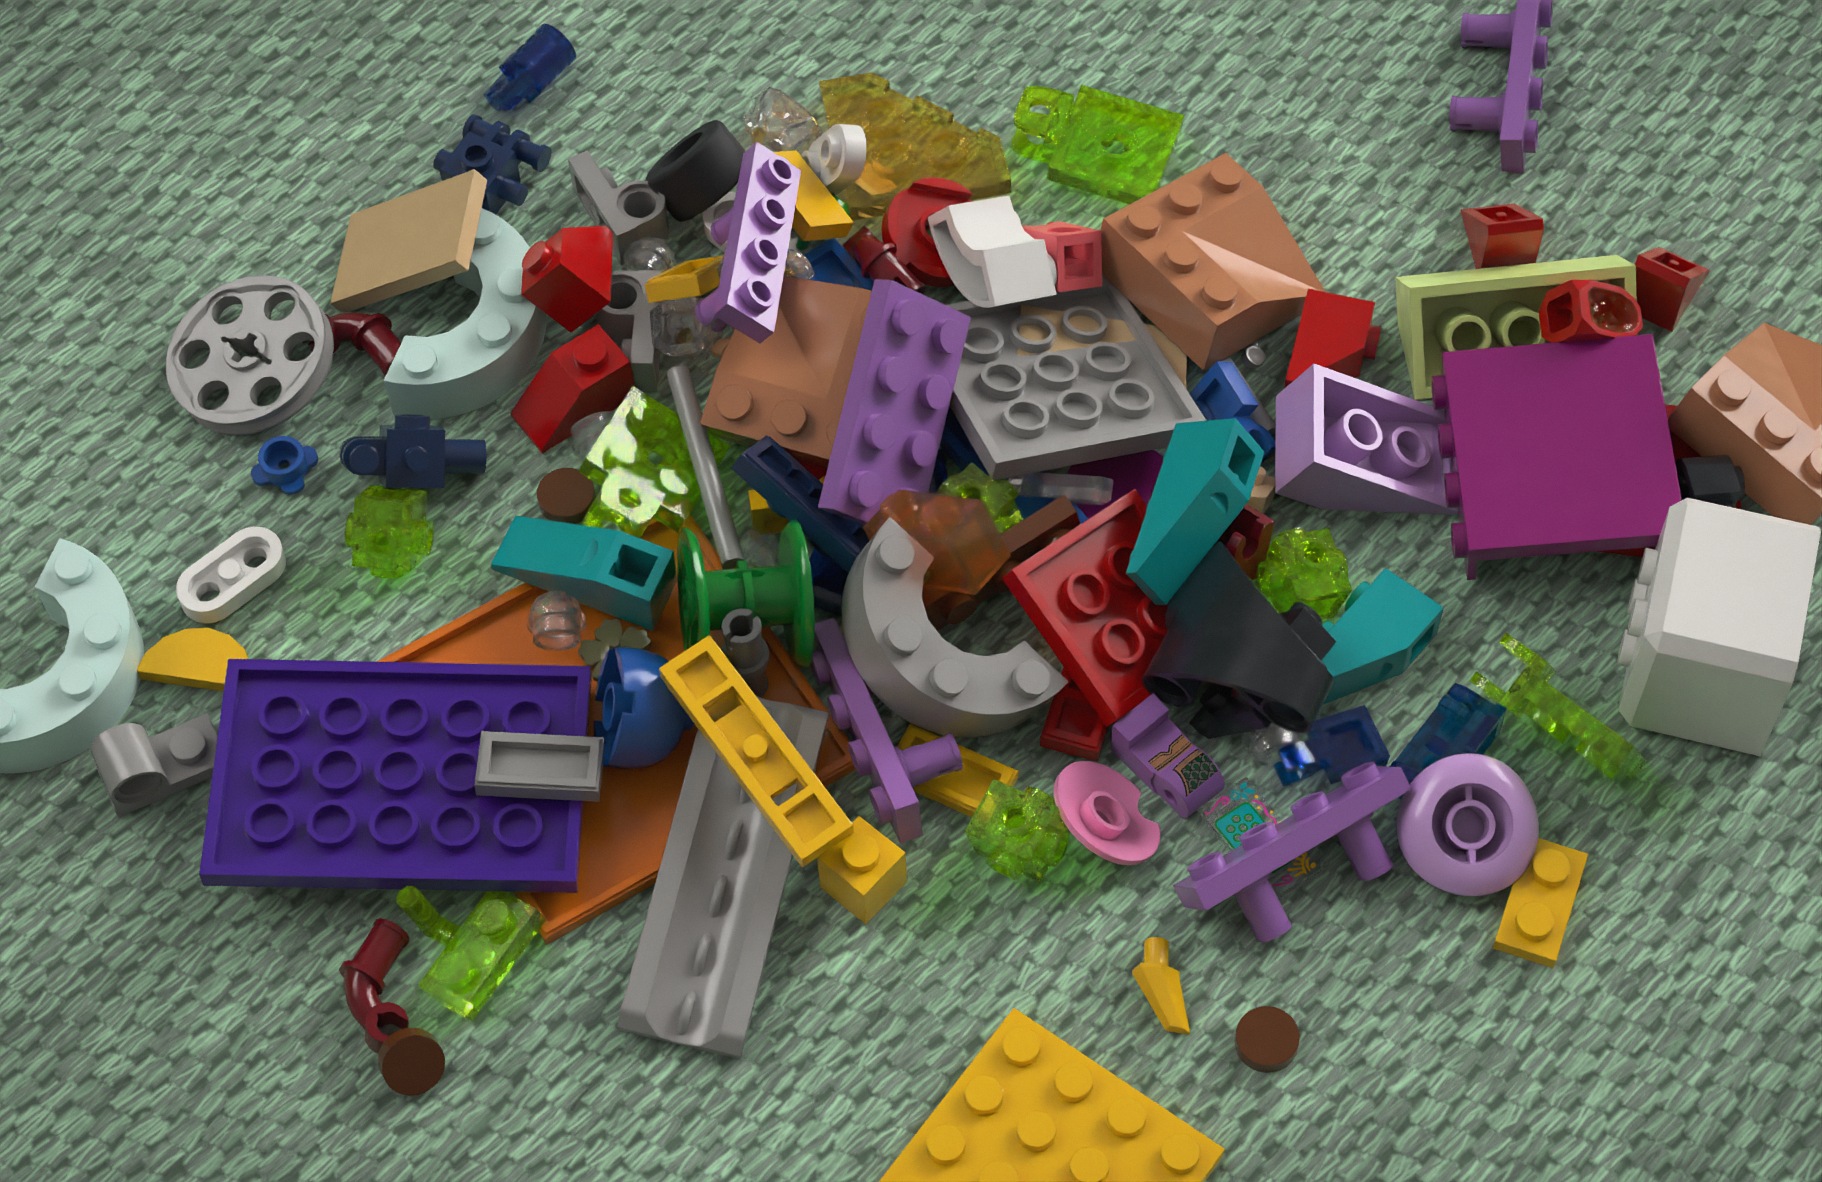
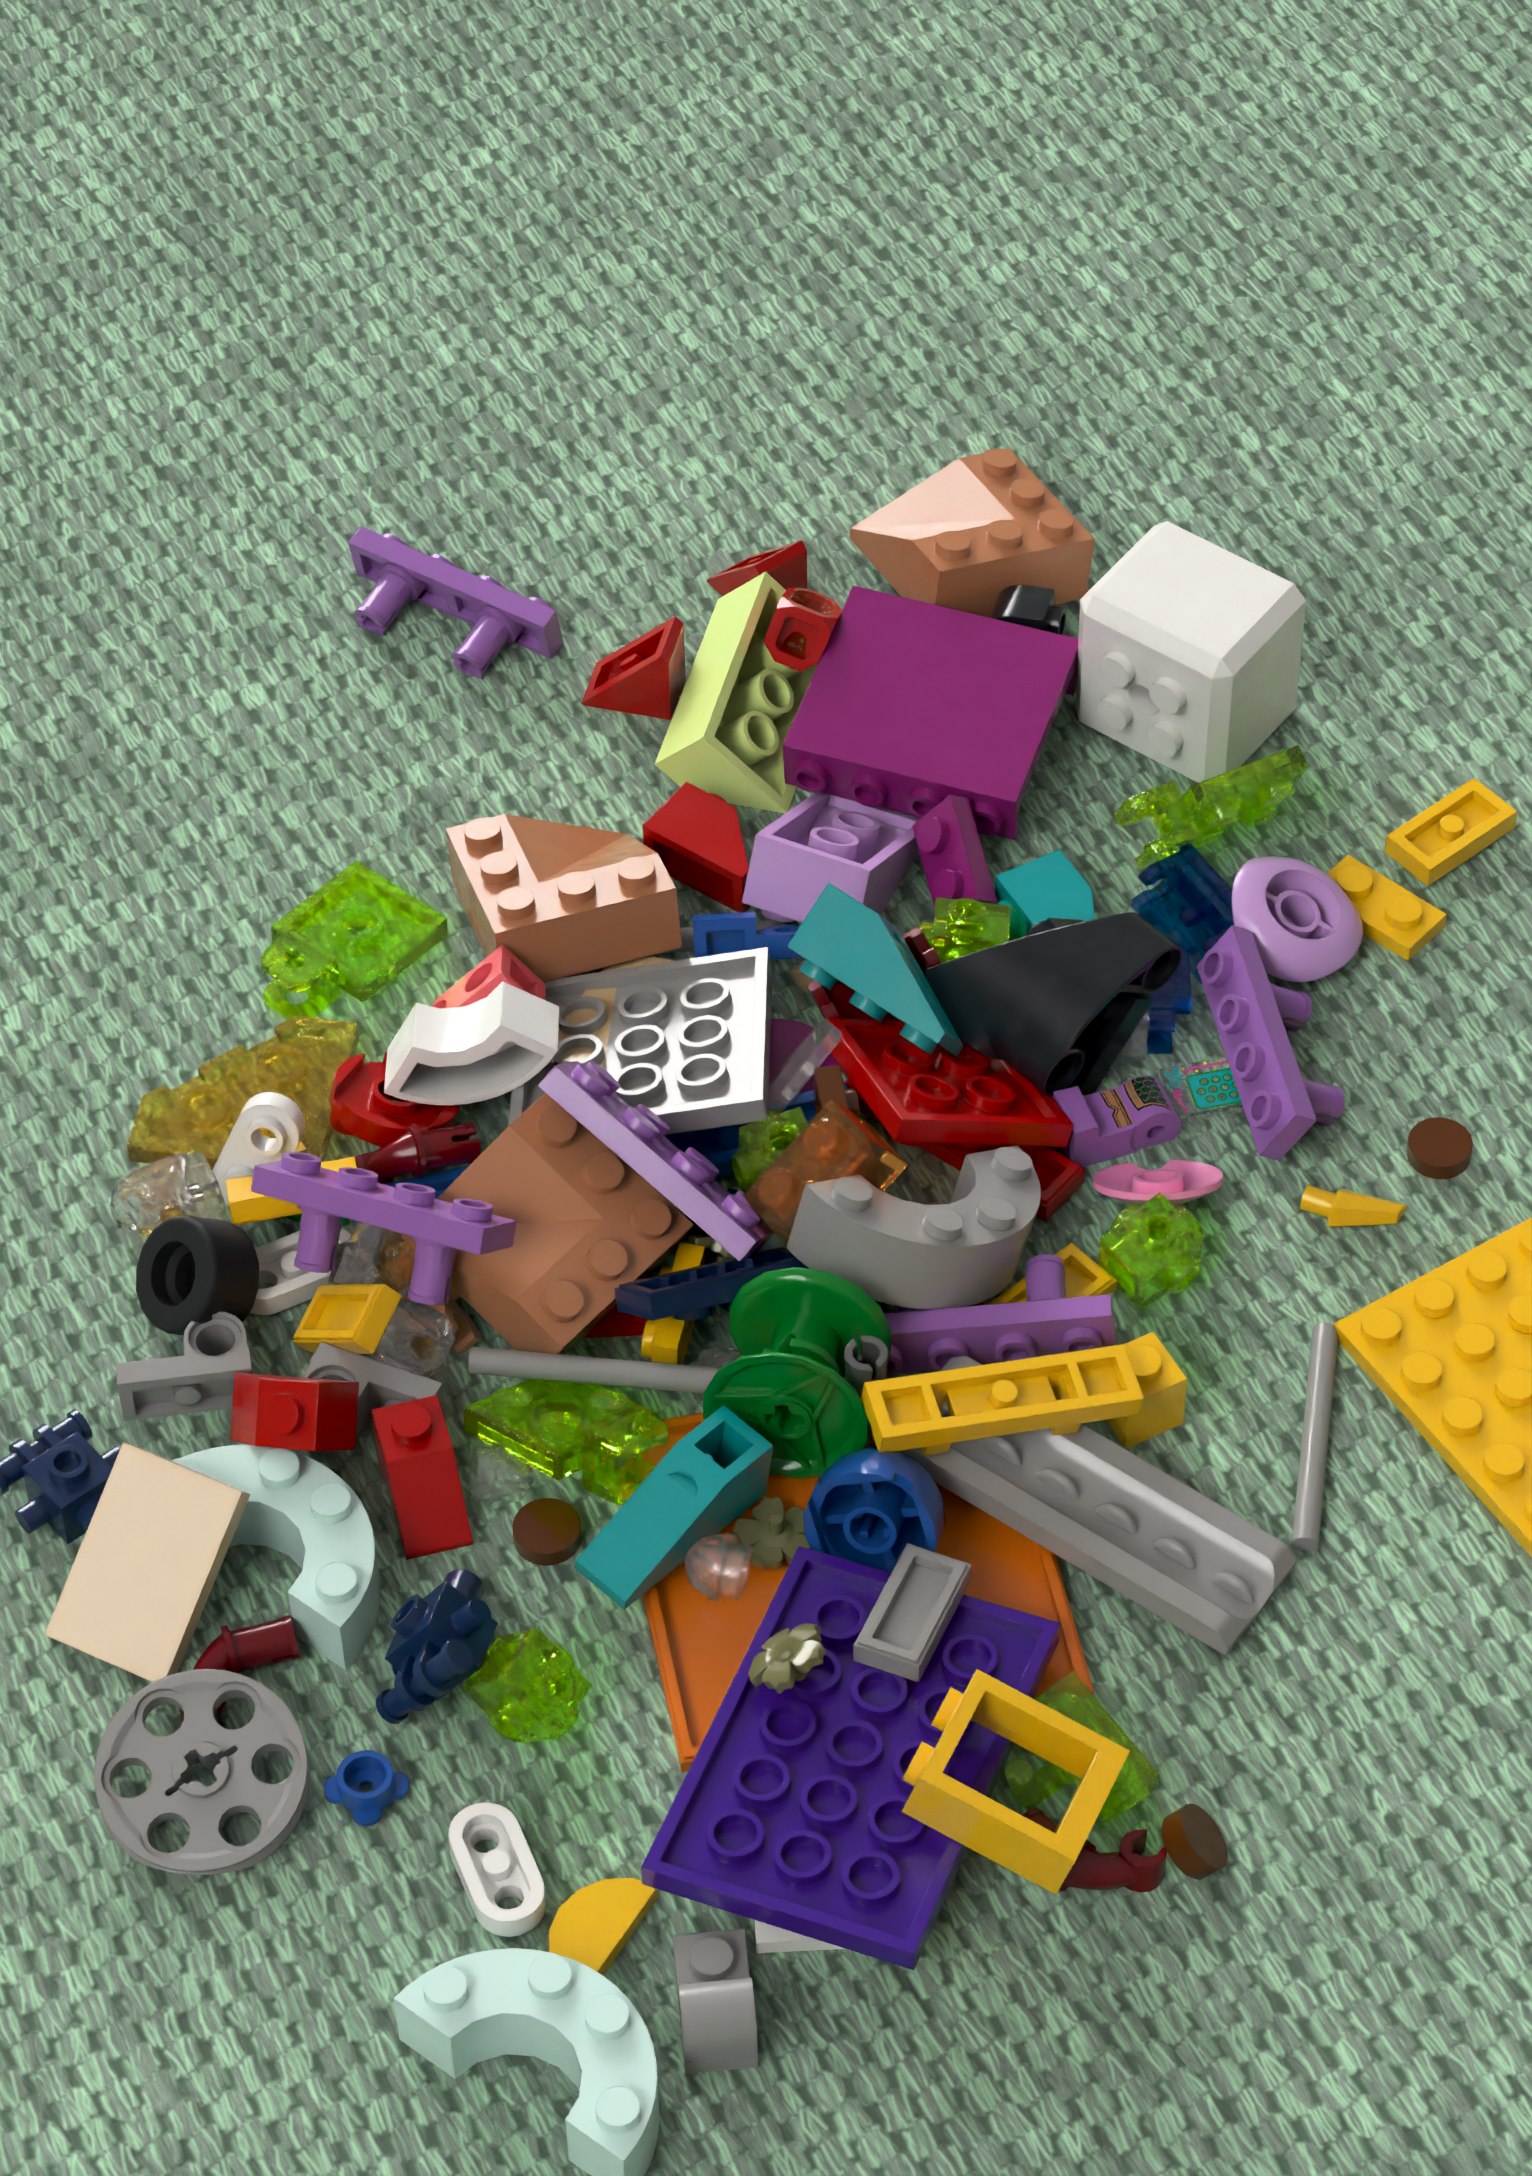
camera: 70 degrees left, 10 degrees down
(374, 951) = (988, 1825): none -> yellow window
(449, 685) = (787, 1657): none -> olive plant
(649, 254) = (283, 1356): clear plate -> none
(887, 1033) = (1315, 1437): none -> light grey bar
(1412, 520) = (953, 852): none -> magenta plate
(1665, 934) = (1450, 831): none -> yellow plate

